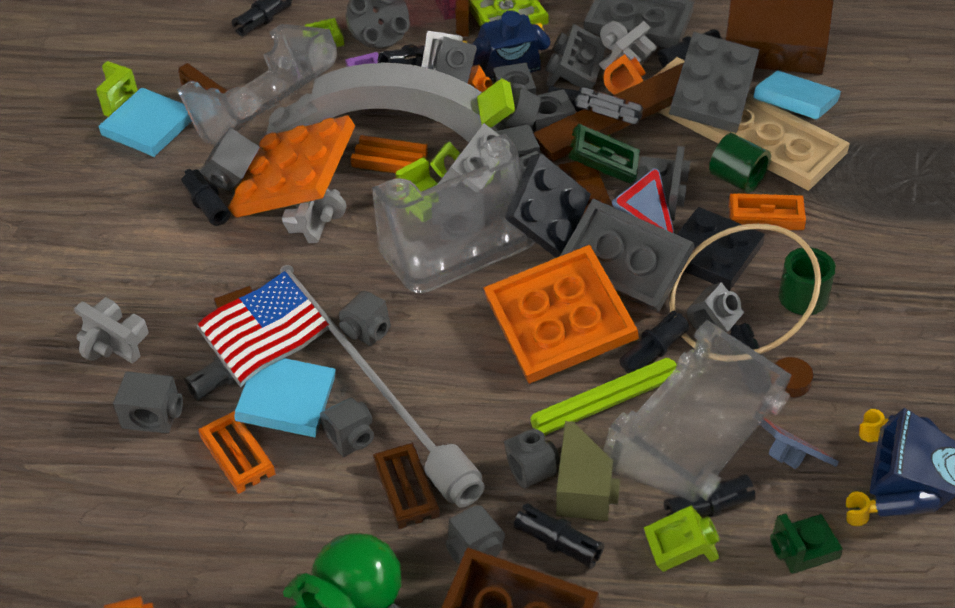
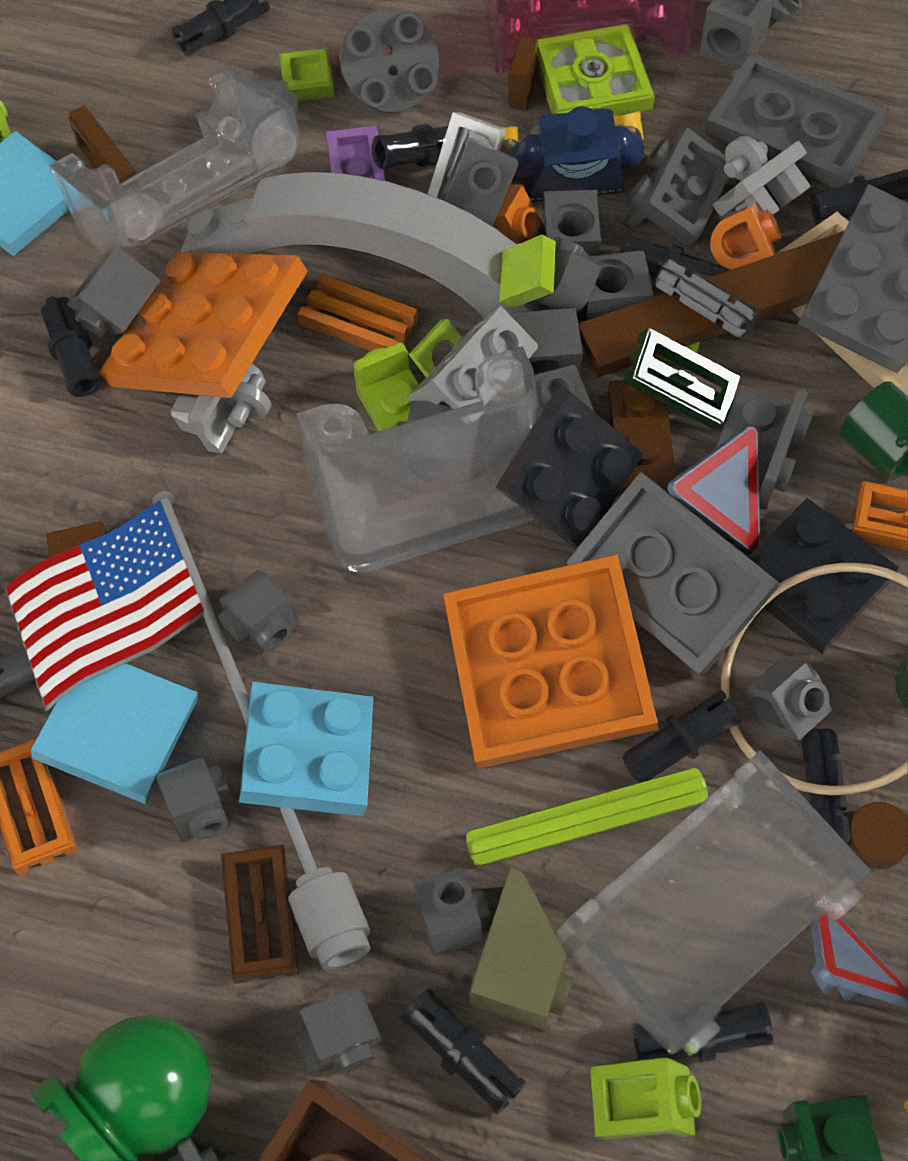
camera: 10 degrees right, 15 degrees up
(416, 386) = (307, 749): none -> medium azure plate

